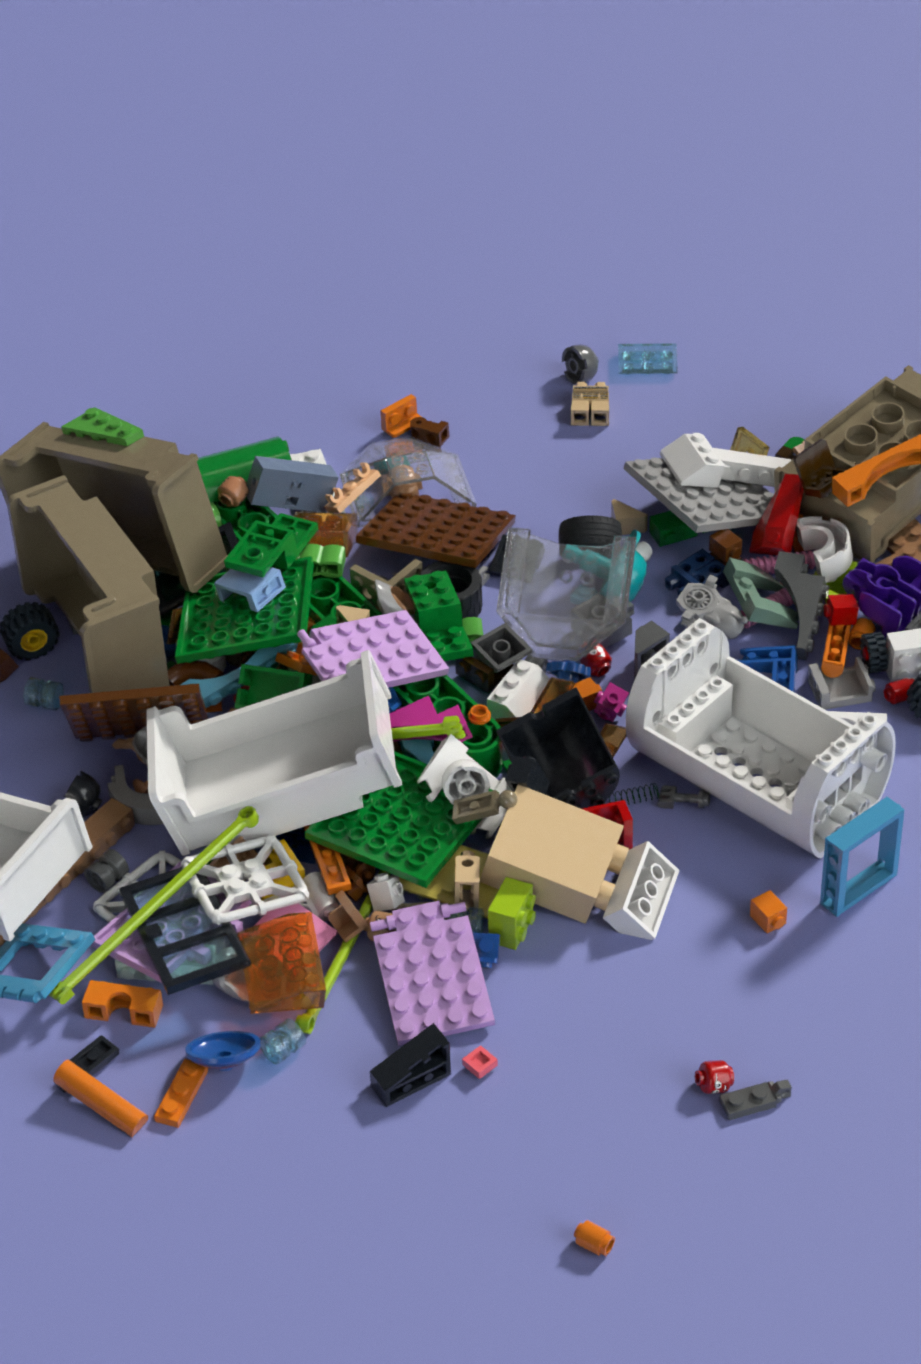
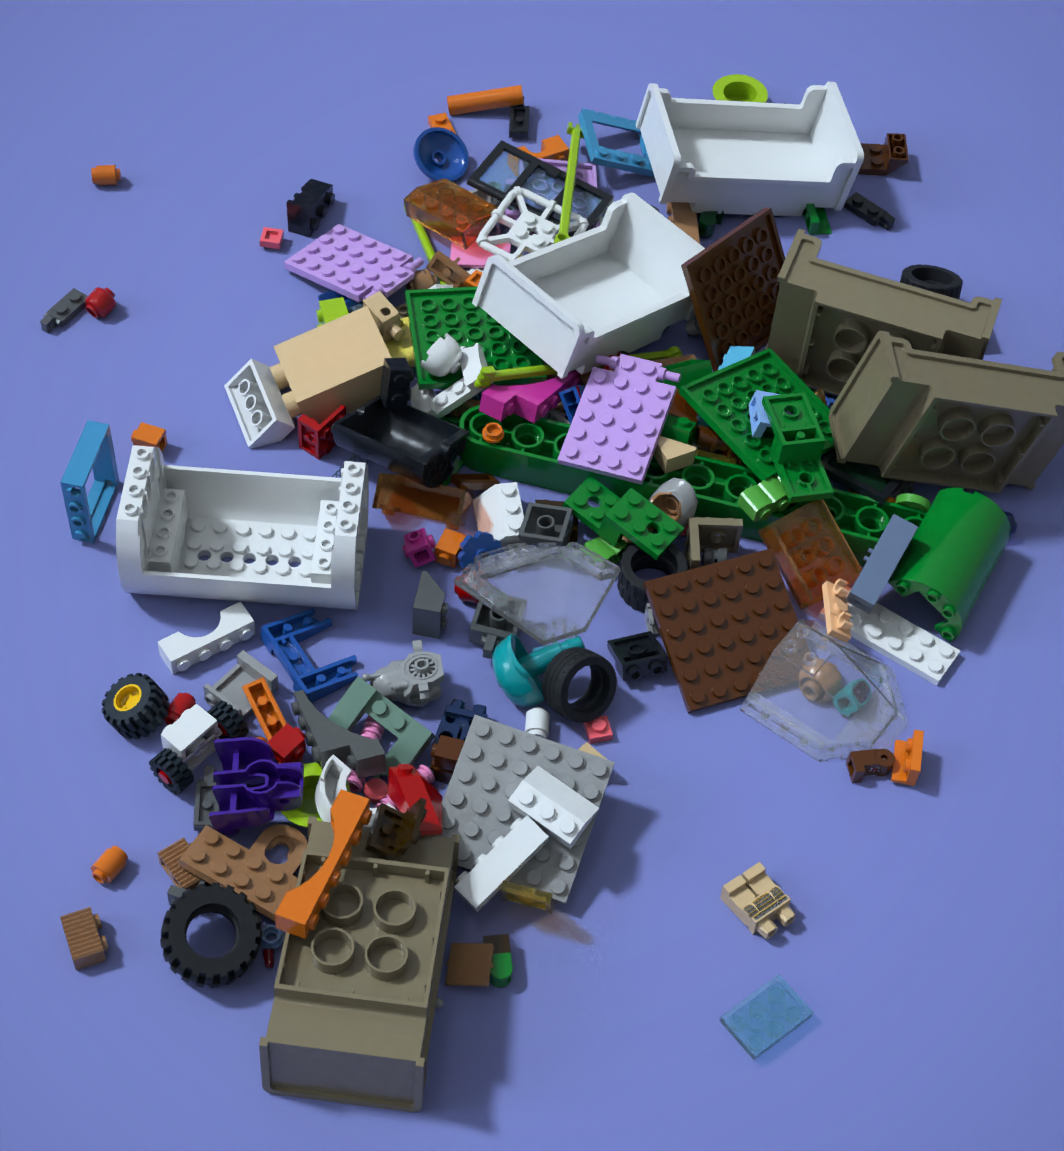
camera: 135 degrees right, 10 degrees up
(103, 426) = (1025, 403): bright green wing -> none
(232, 491) = (917, 515): nougat head -> none
(285, 1039) = (409, 178): clear light blue wheel -> none
(482, 805) = (407, 345): dark tan plate -> none
(580, 363) = (816, 944): dark grey cylinder -> none

